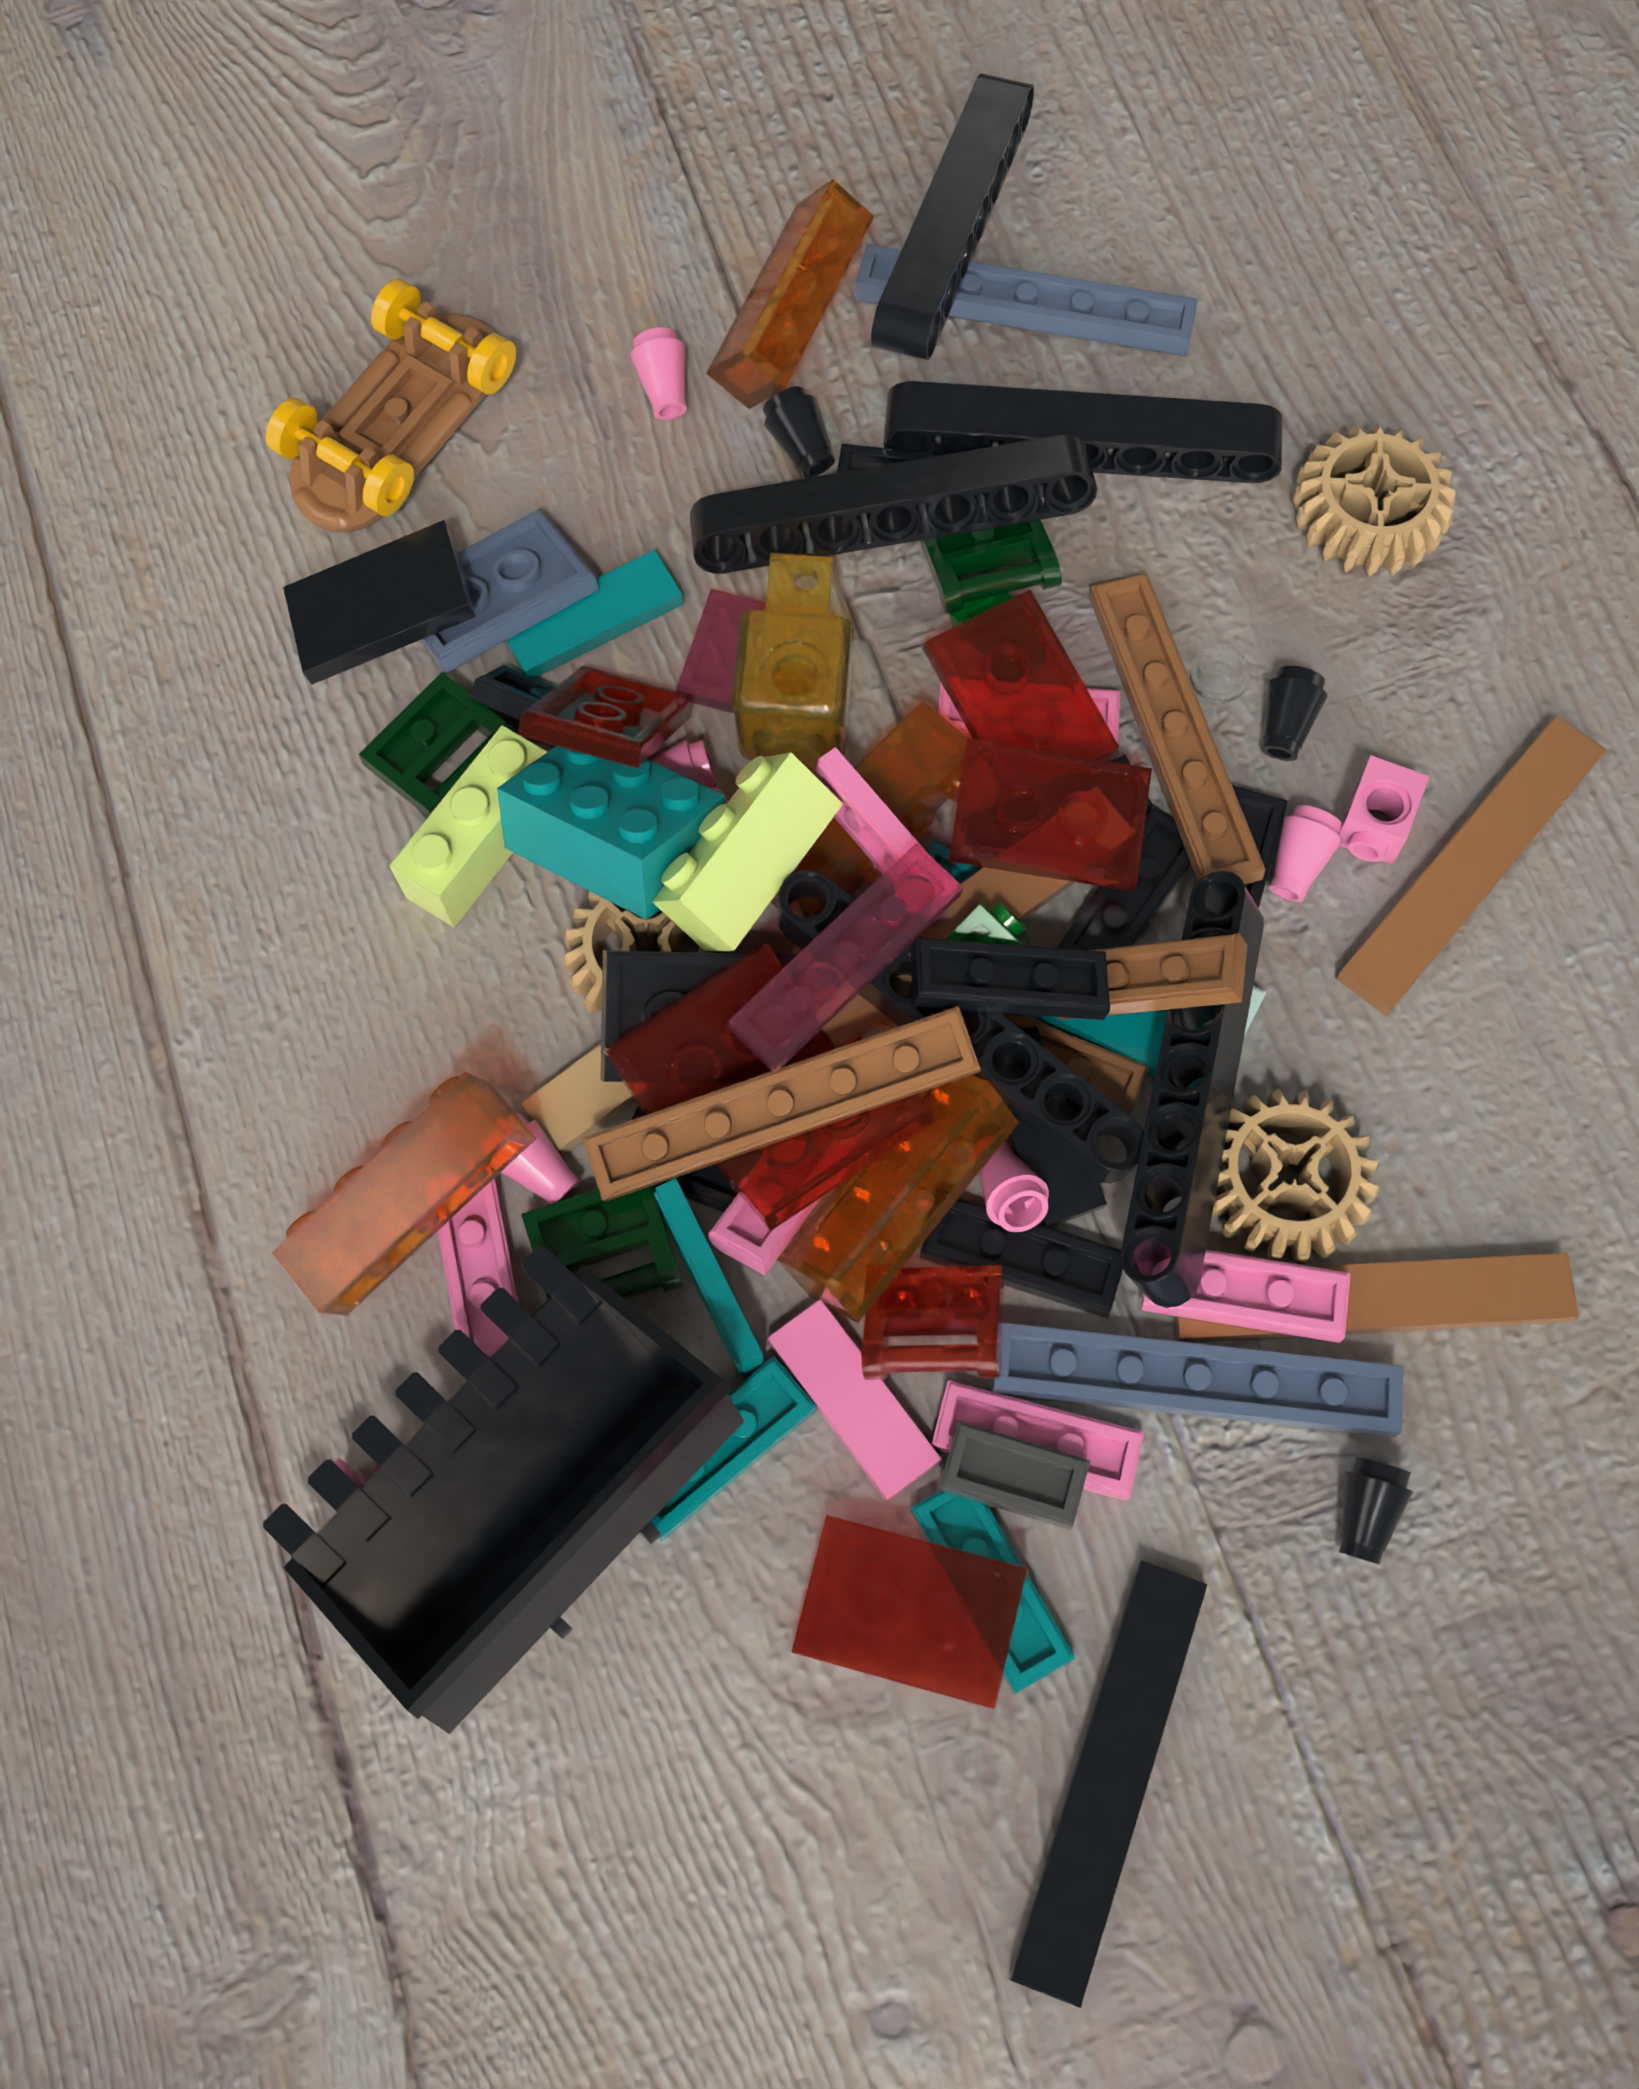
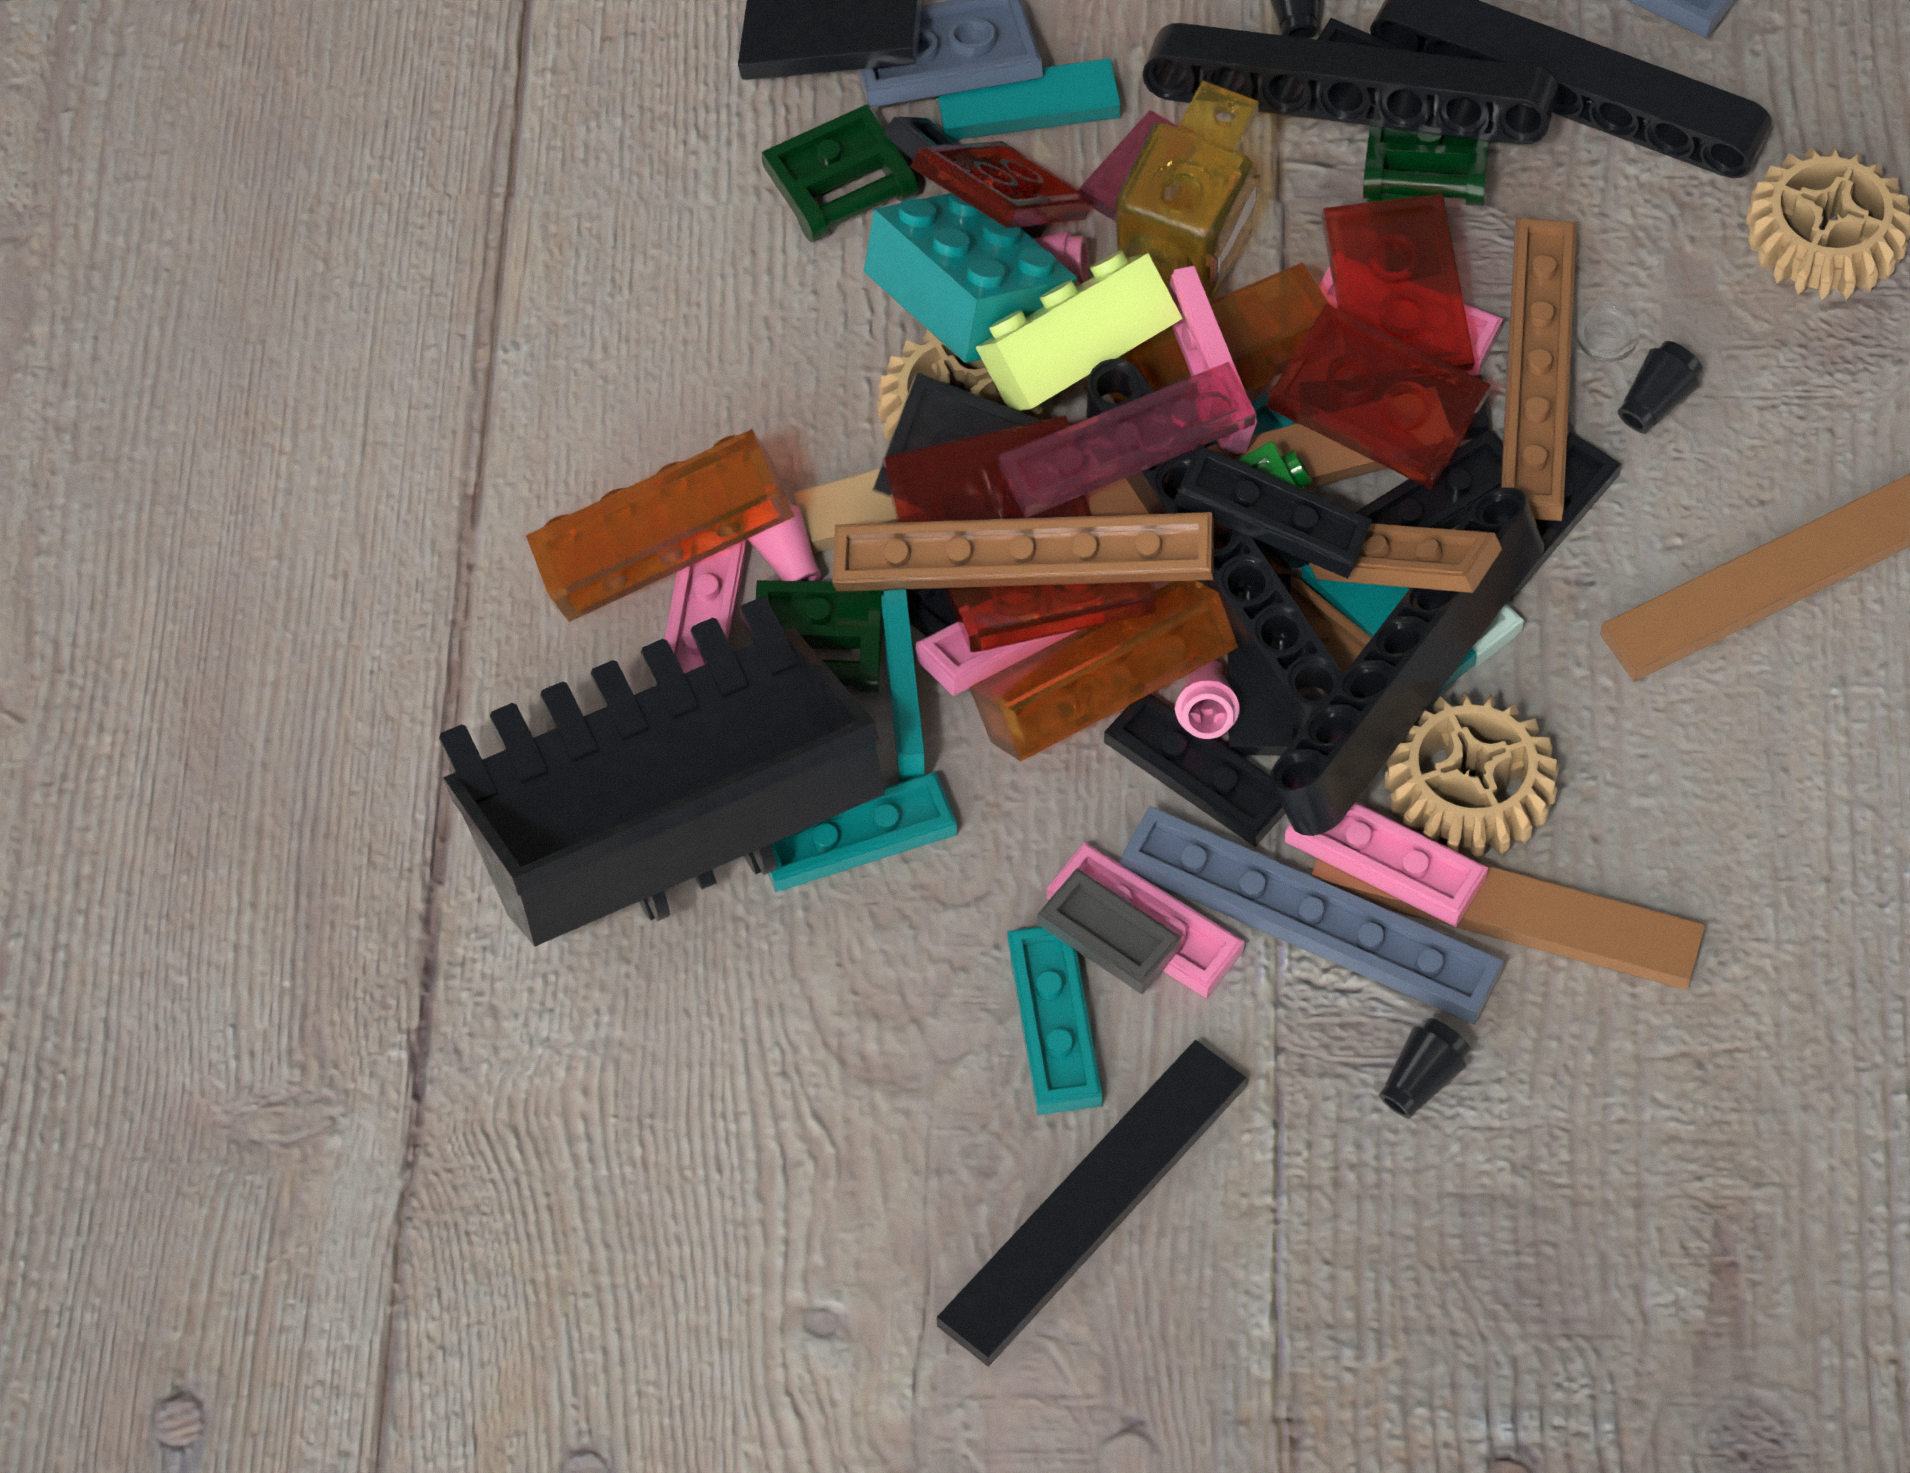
camera: 20 degrees right, 10 degrees down
(462, 839) = (825, 254): yellowish green brick -> none
(856, 1409) = (992, 832): bright pink tile -> none
(910, 1611) = (971, 1008): clear red tile -> none
(936, 1304) = (1095, 771): clear red plate -> none
(1304, 850) = (1616, 509): bright pink cone -> none
(1392, 791) = (1708, 477): bright pink brick -> none

